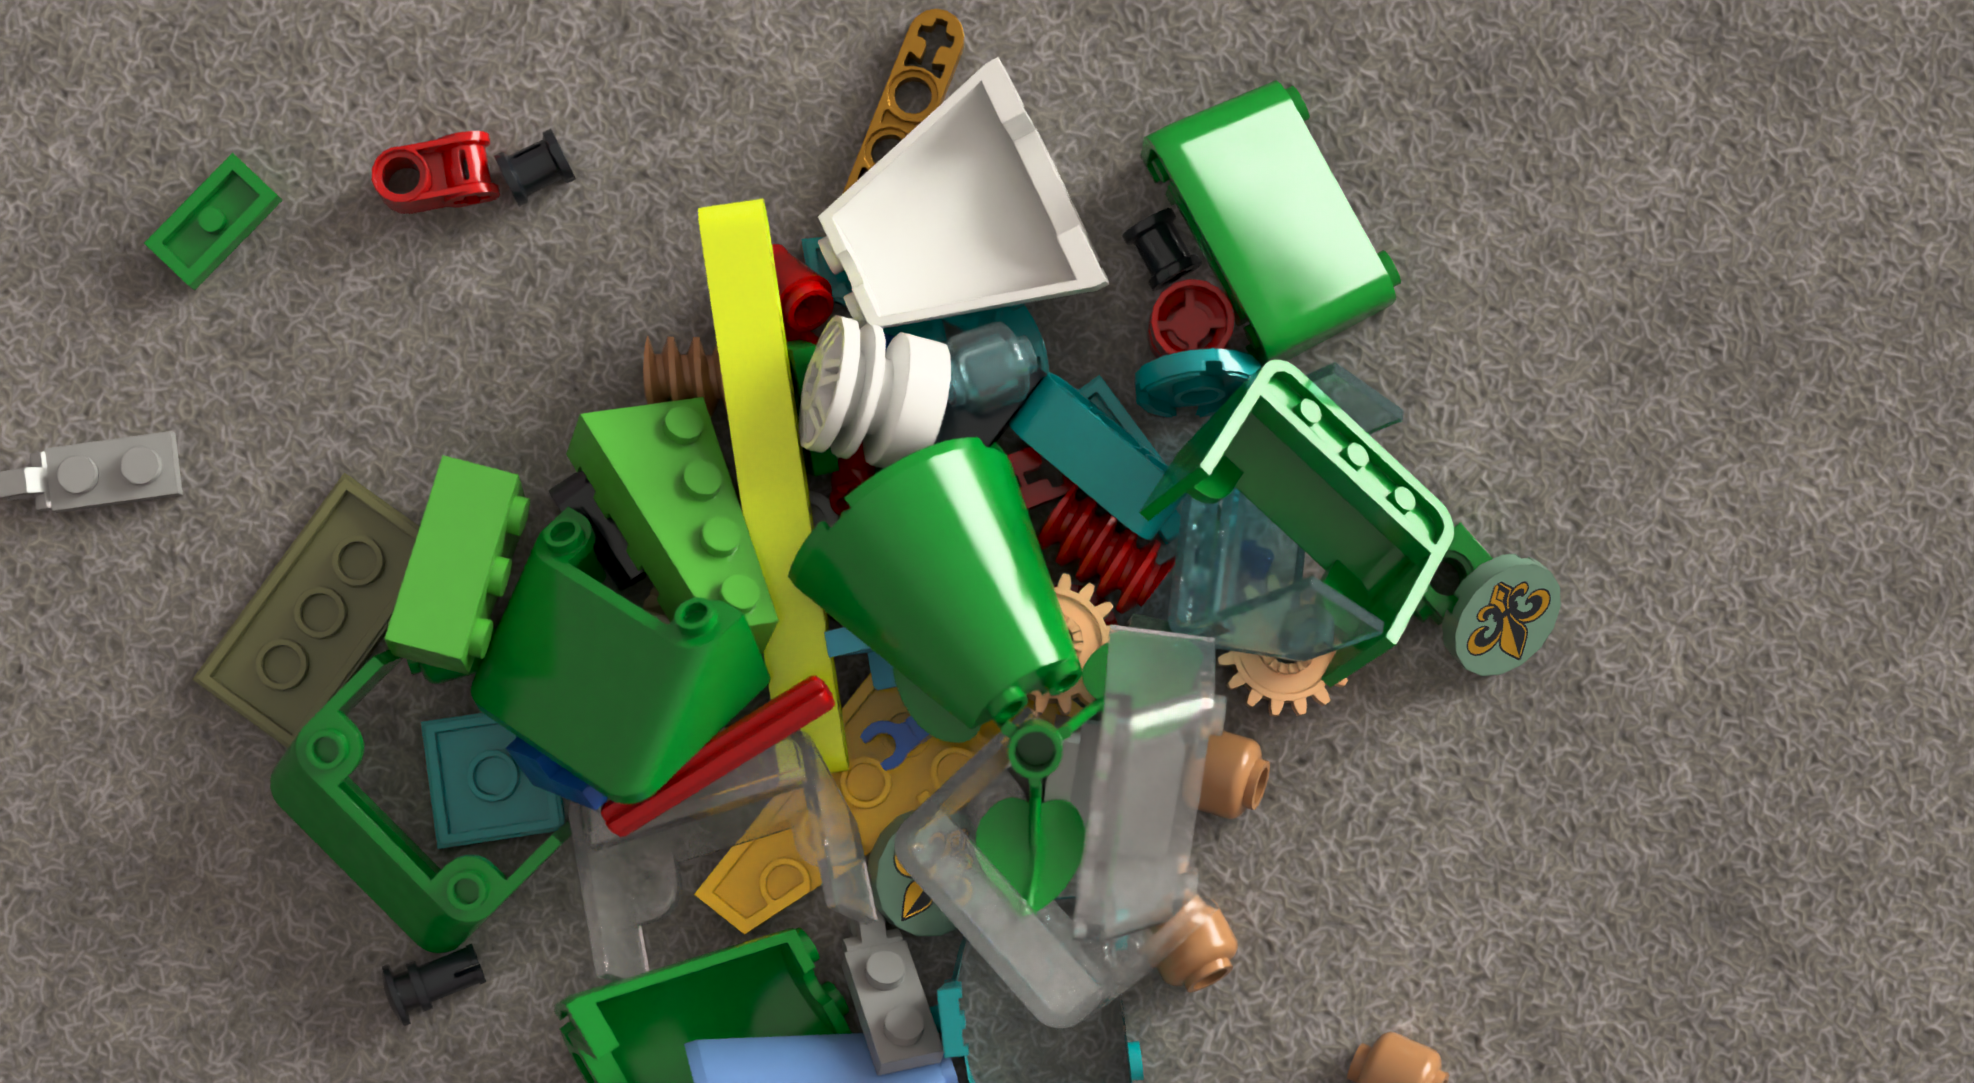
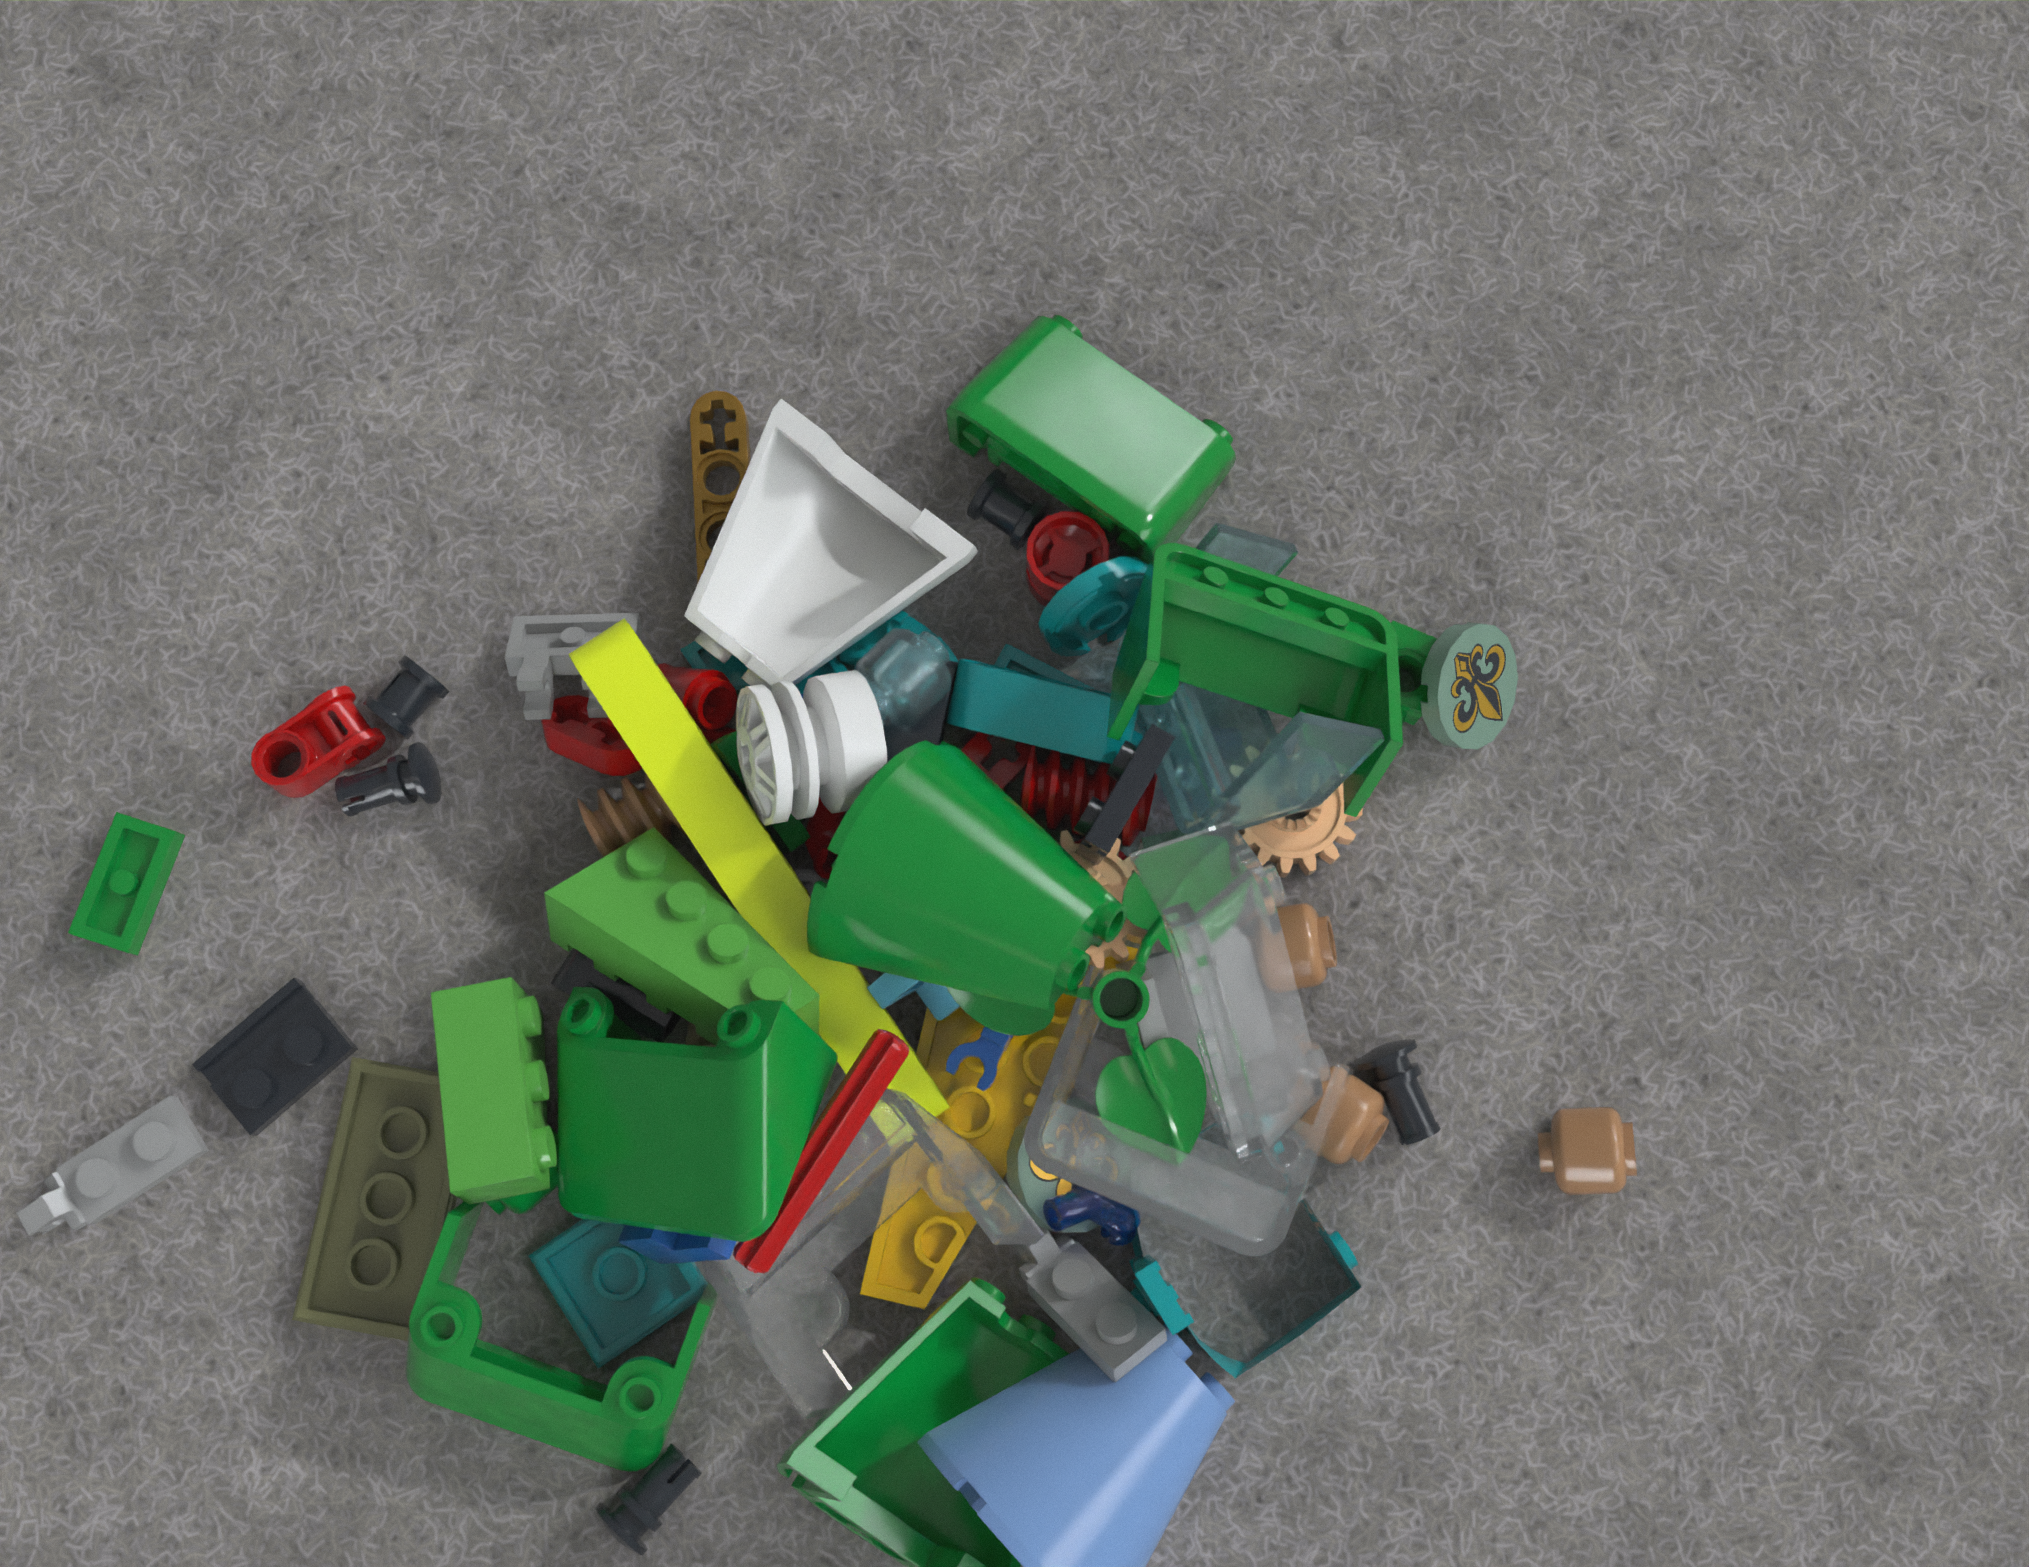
camera: 25 degrees left, 5 degrees down
(276, 439) = (275, 1056): none -> black plate
(494, 241) = (396, 781): none -> black pin
(678, 277) = (586, 739): none -> red beam
(685, 181) = (540, 649): none -> light grey plate
(920, 910) = (1081, 1204): none -> clear blue arm
(1151, 551) = (1133, 771): none -> black plate
(1258, 946) = (1401, 1090): none -> black pin

